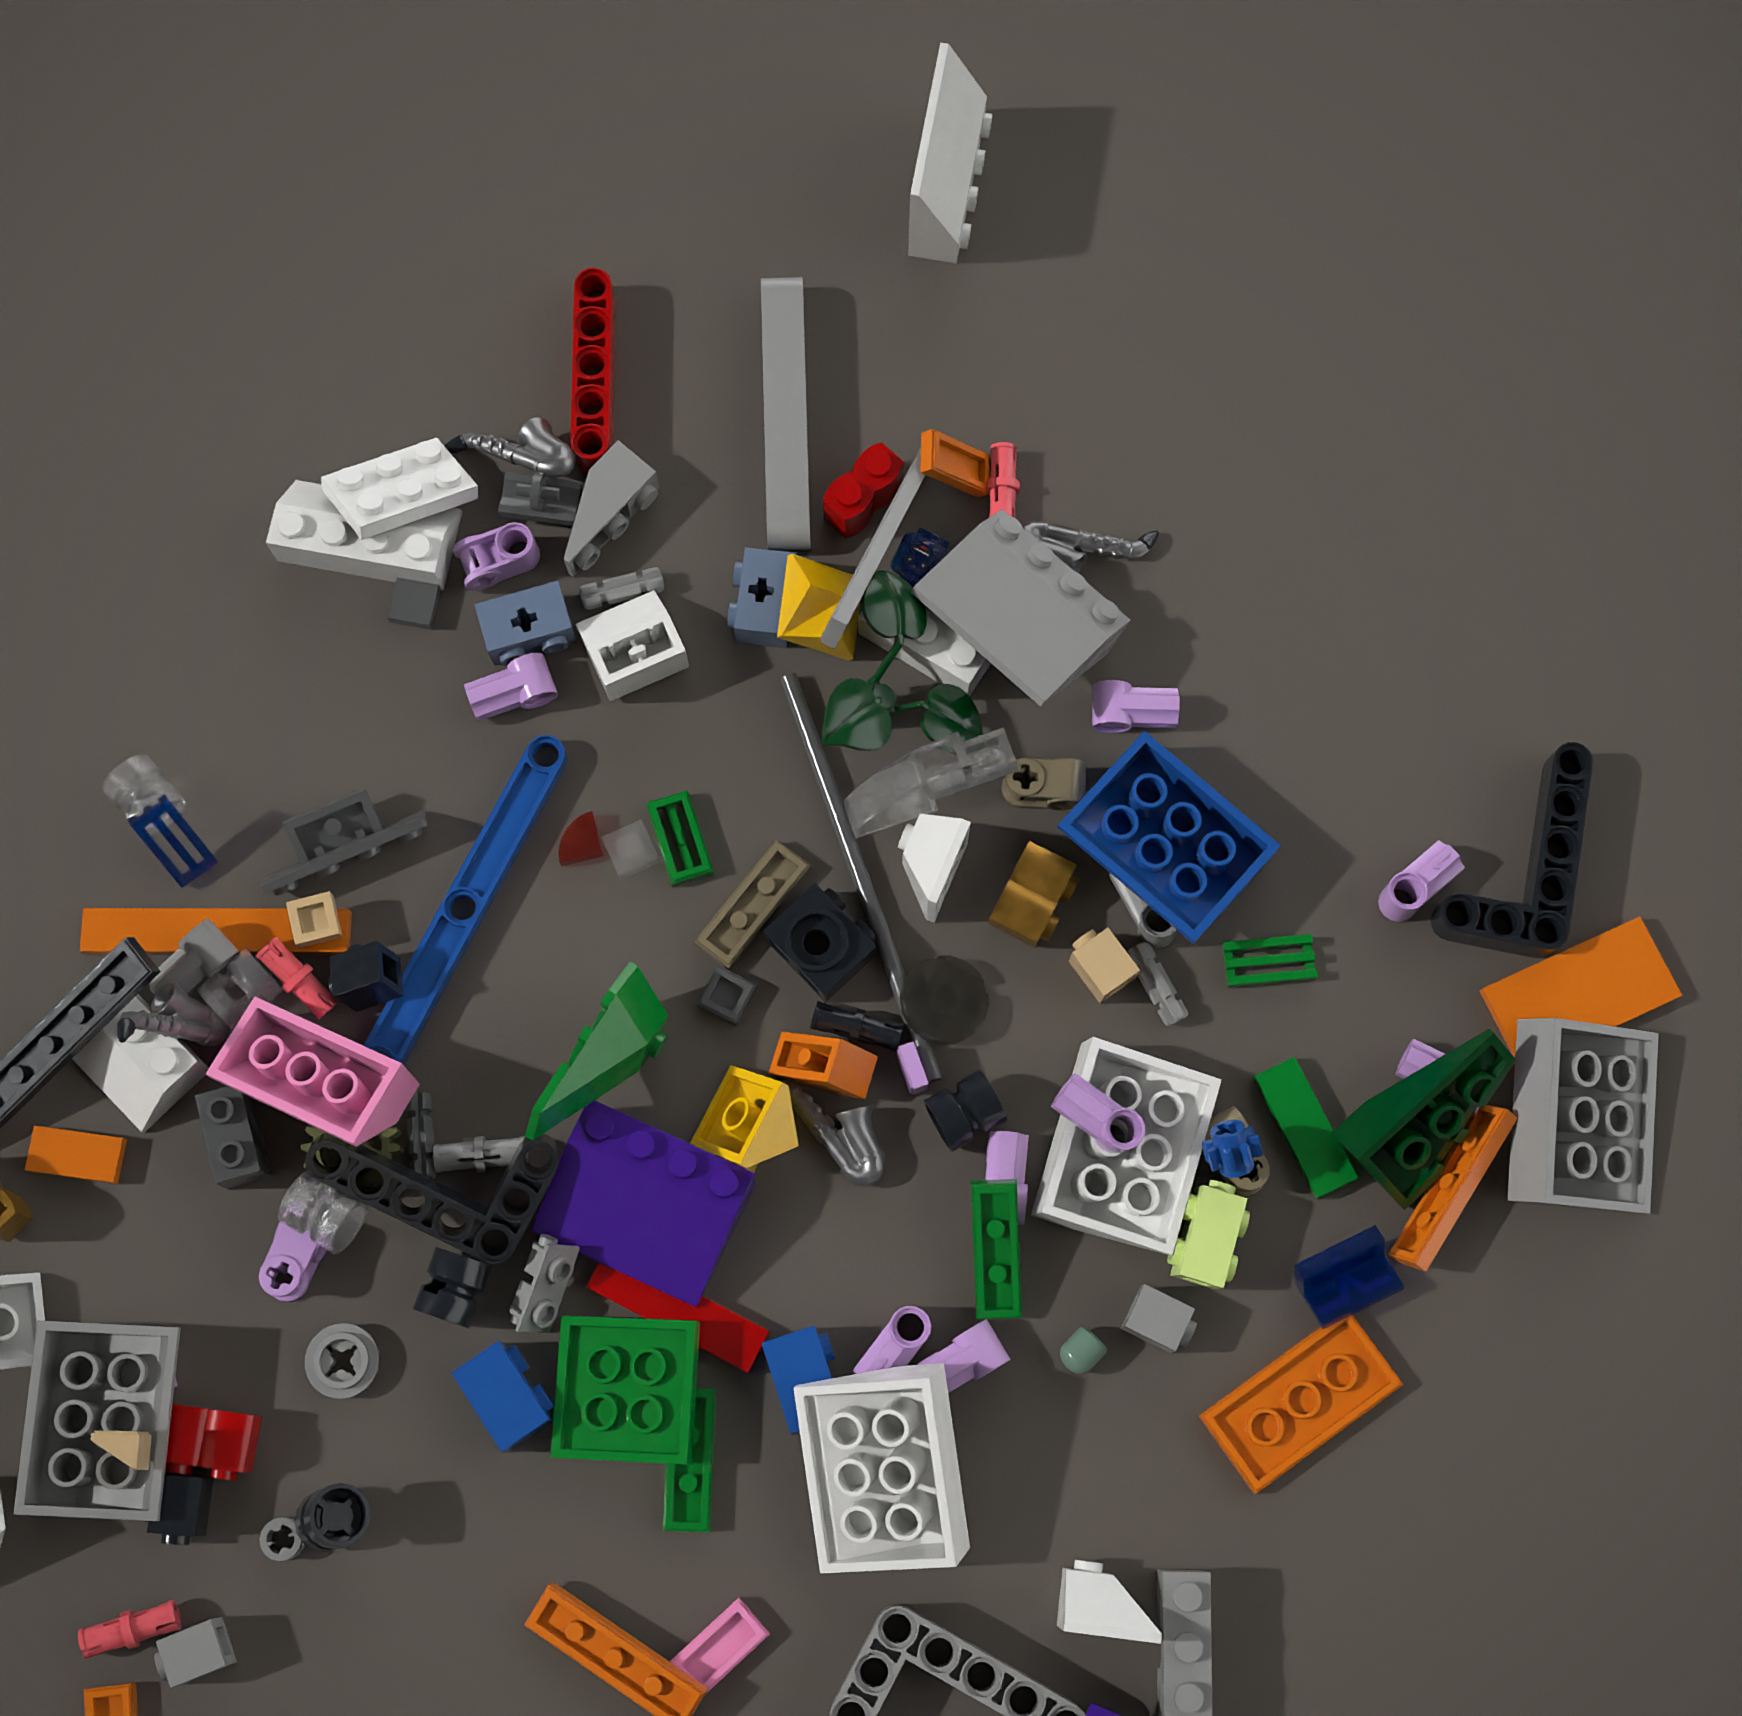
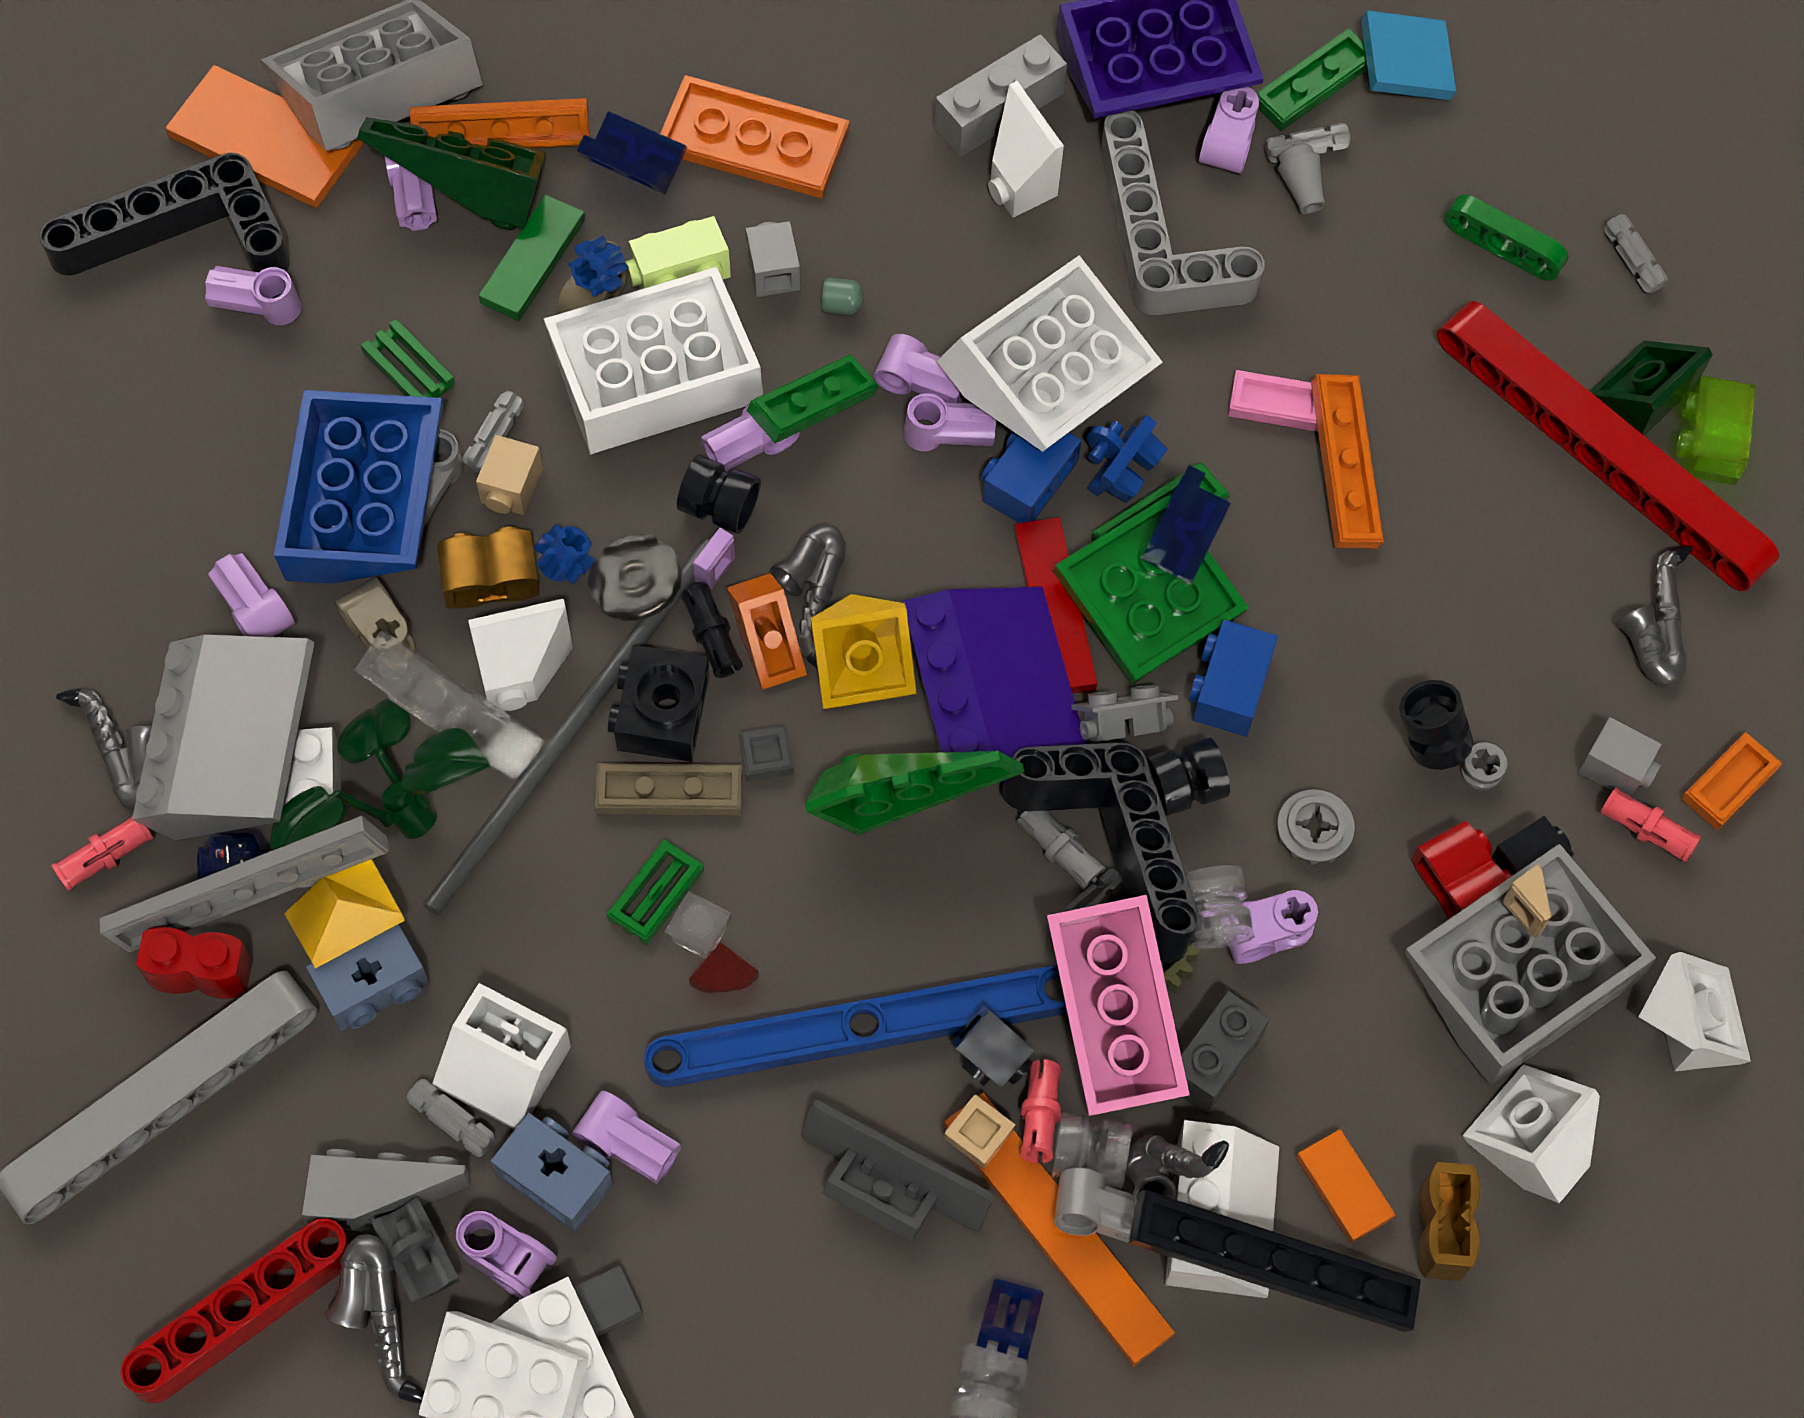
camera: 130 degrees left, 10 degrees down
(645, 1451) = (1186, 528): none -> clear blue panel
(764, 1464) = (1136, 444): none -> blue hips
(954, 463) = (110, 894): orange tile -> none
(996, 969) = (564, 553): none -> blue gear
(1095, 1112) = (649, 364): lavender piece -> none

